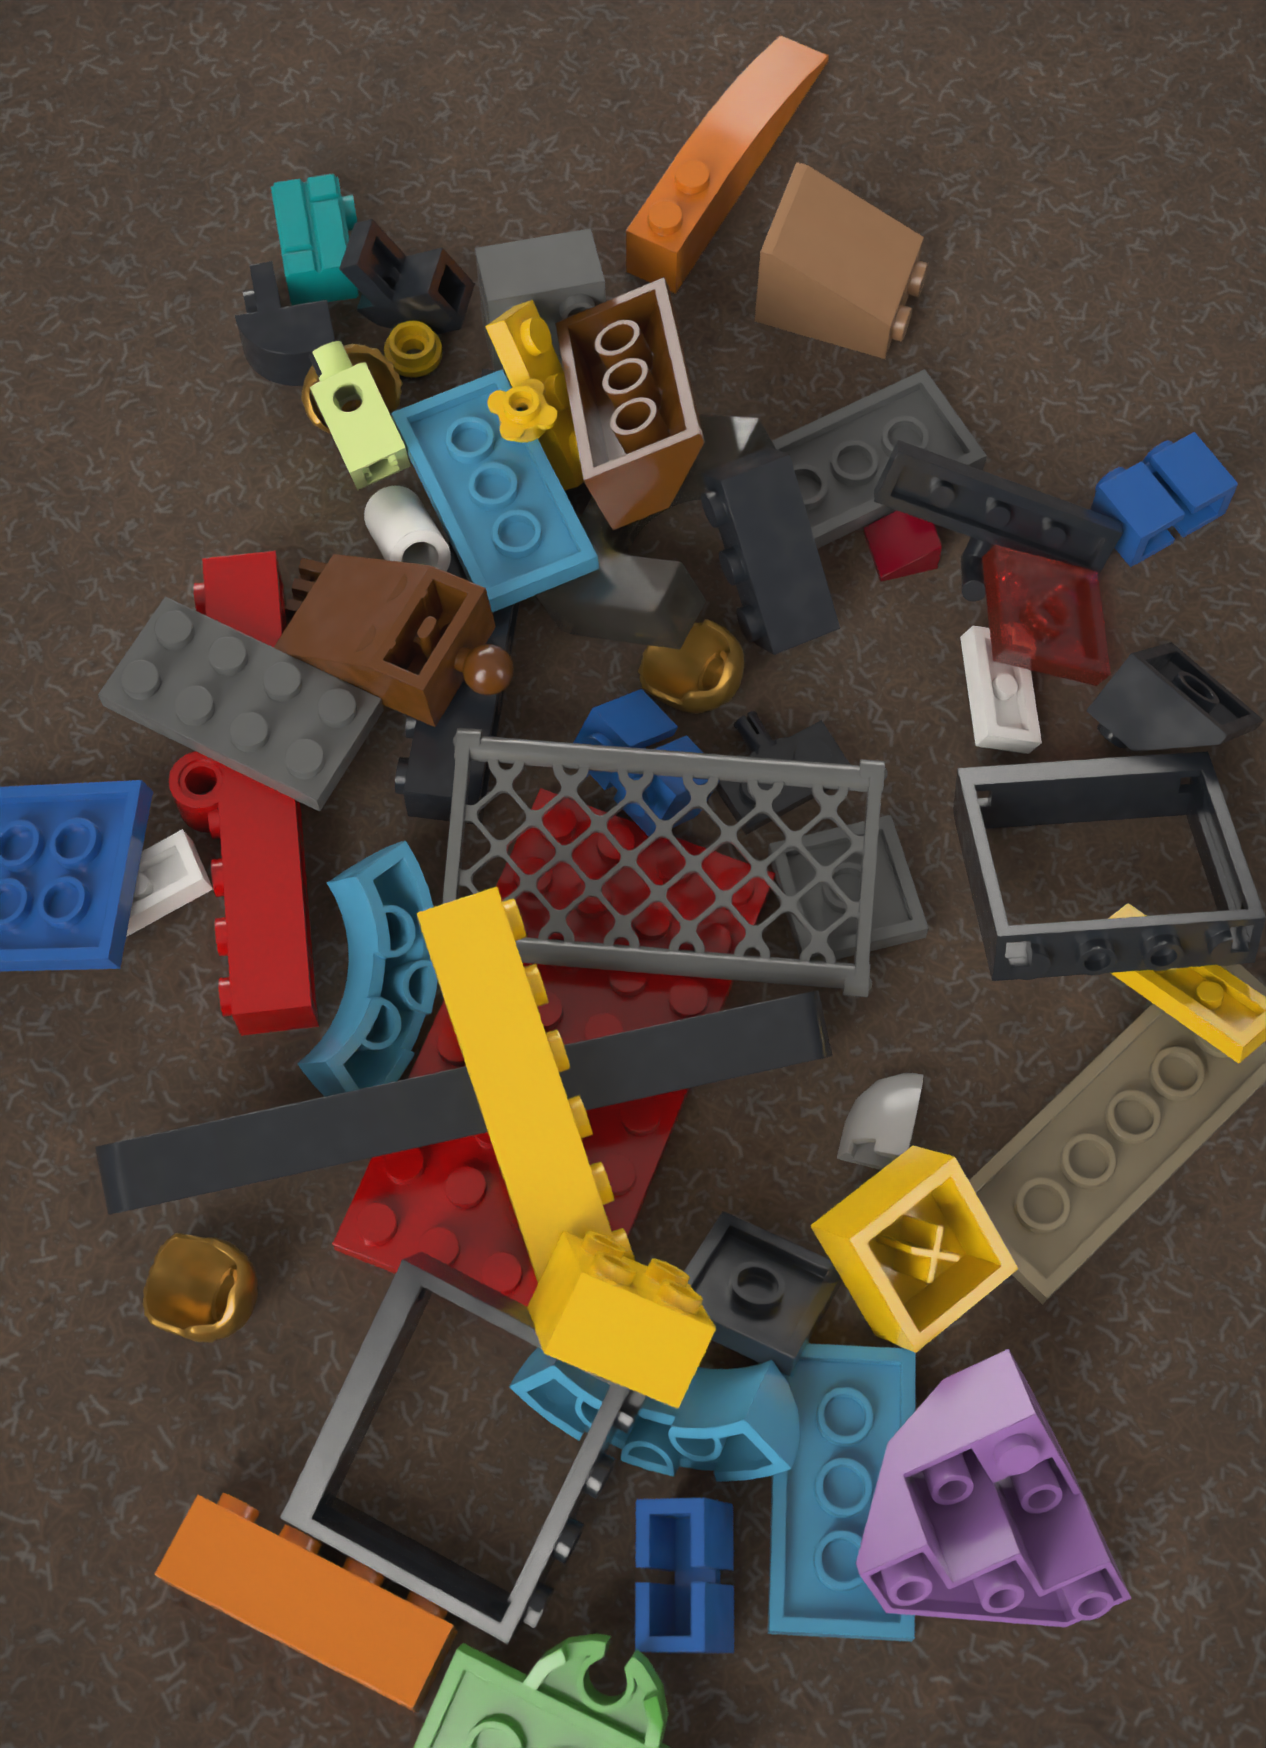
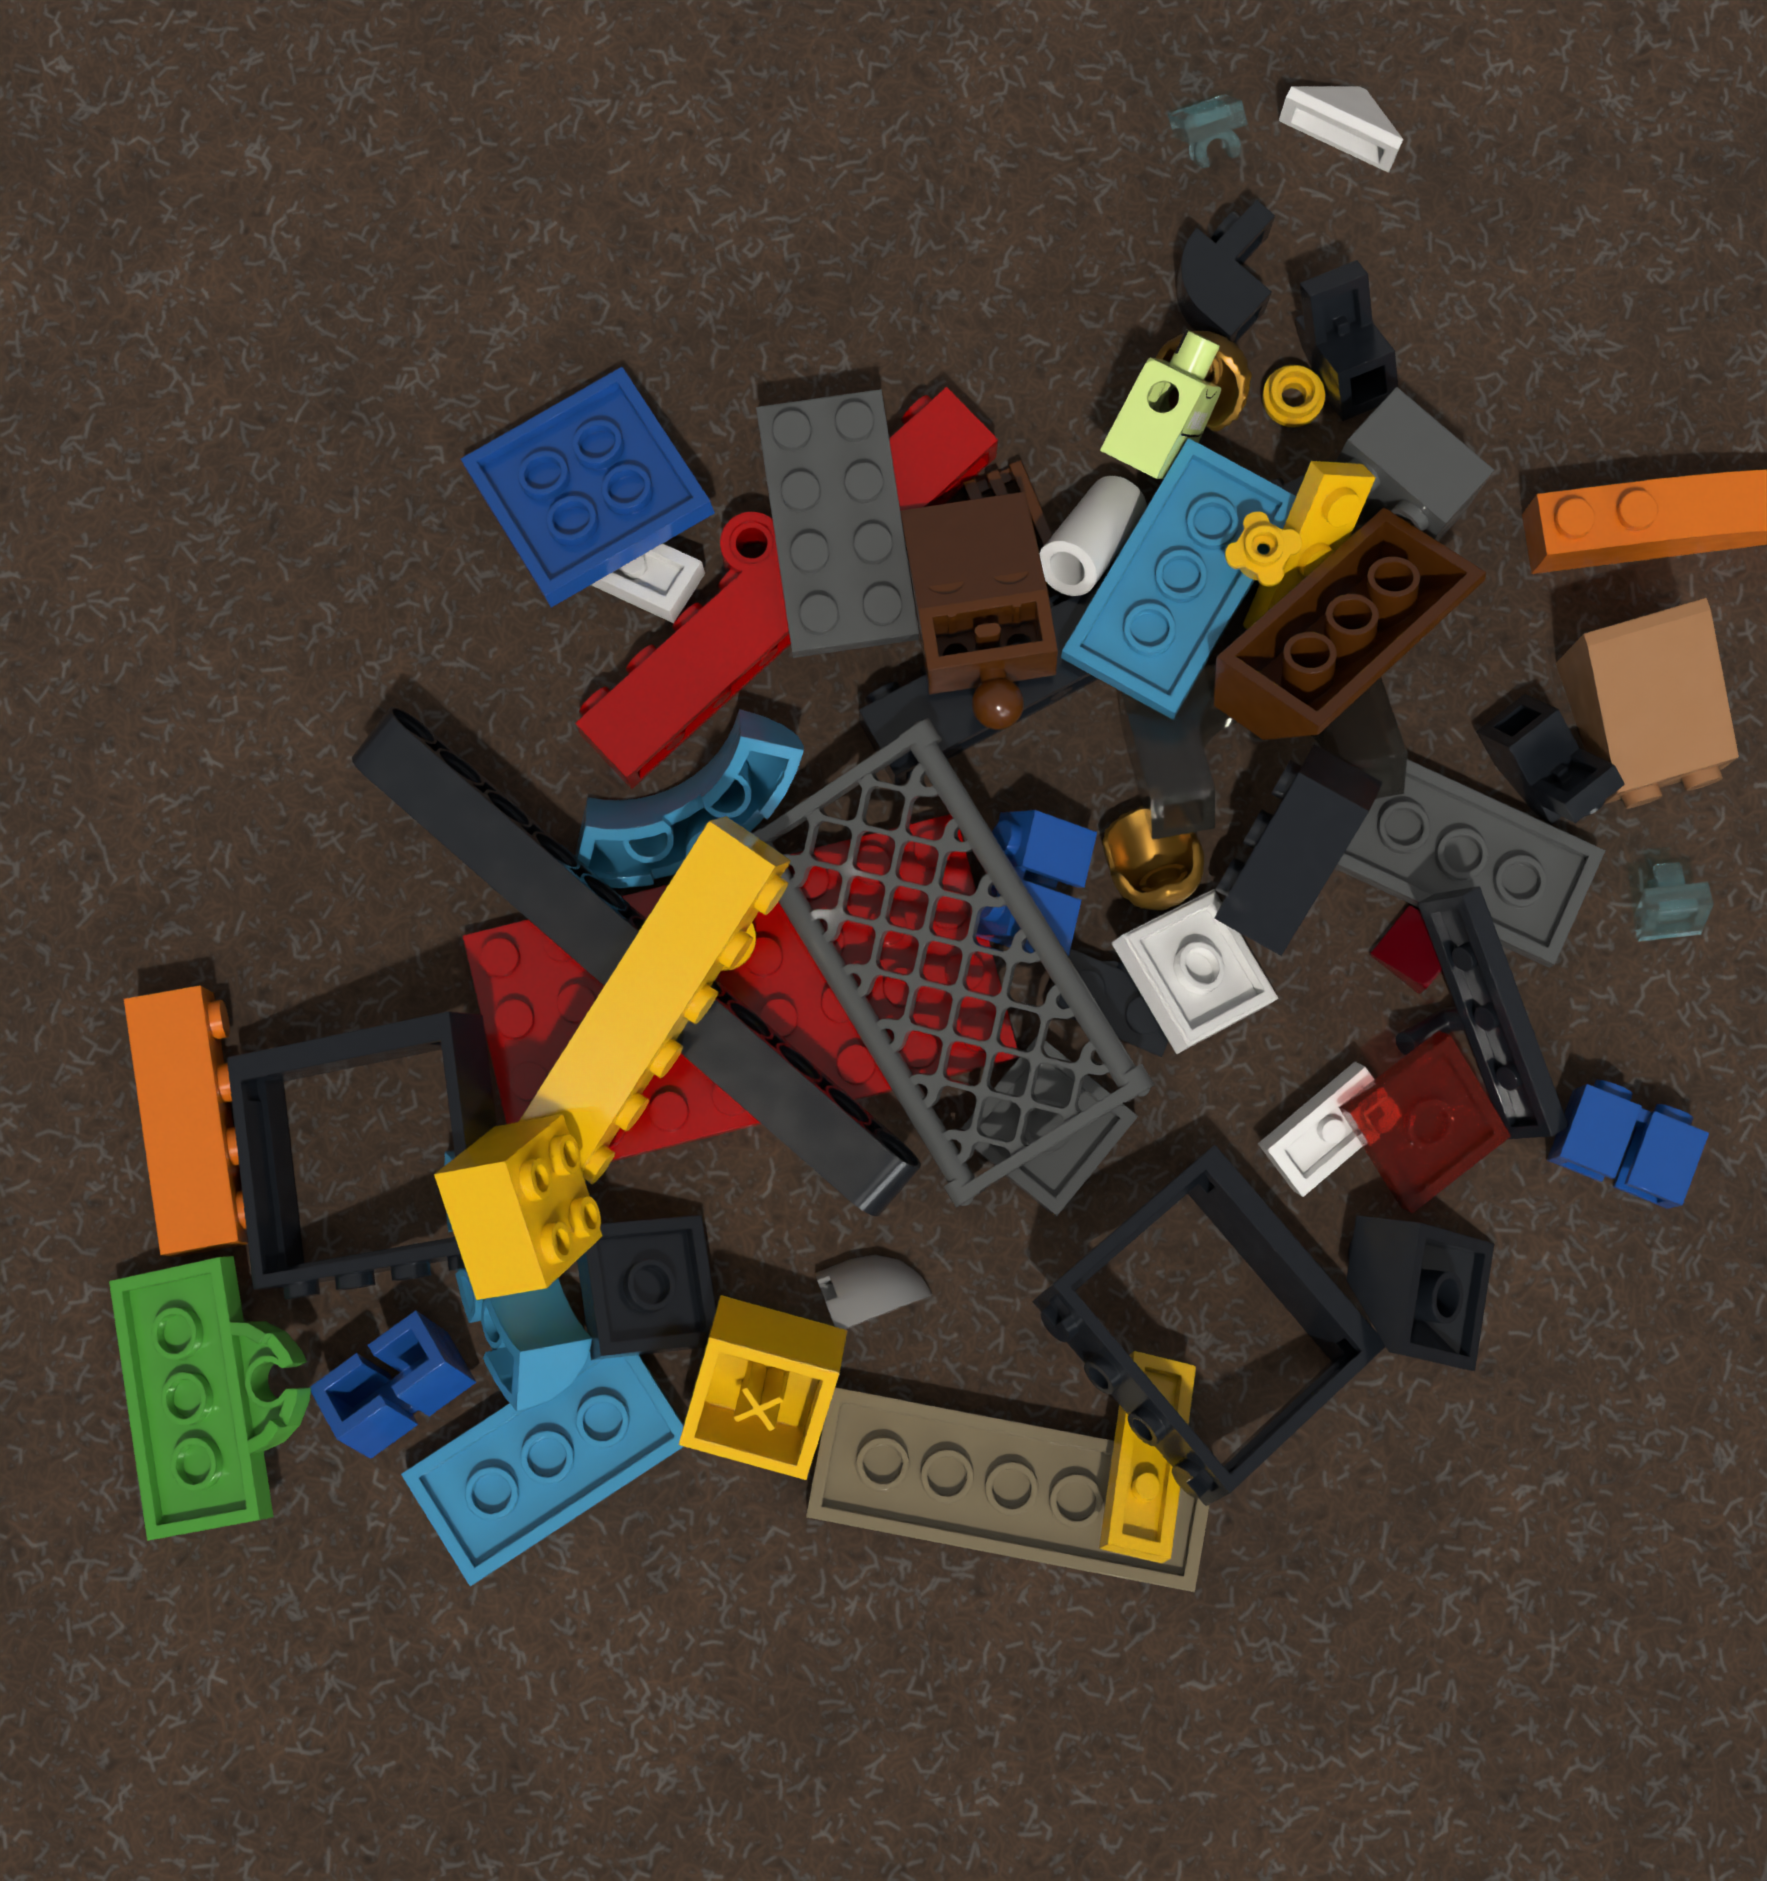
camera: 55 degrees right, 15 degrees up
(162, 267) = (1207, 121): none -> clear light blue tile
(200, 1288) = (355, 865): pearl gold hair -> none
(239, 188) = (1344, 119): none -> white slope
(314, 237) = (1338, 223): teal brick -> none
(805, 698) = (1194, 972): none -> white plate
(827, 367) = (1545, 763): none -> black brick
(985, 1512) = (597, 1578): medium lavender brick -> none
(998, 356) = (1671, 906): none -> clear light blue tile

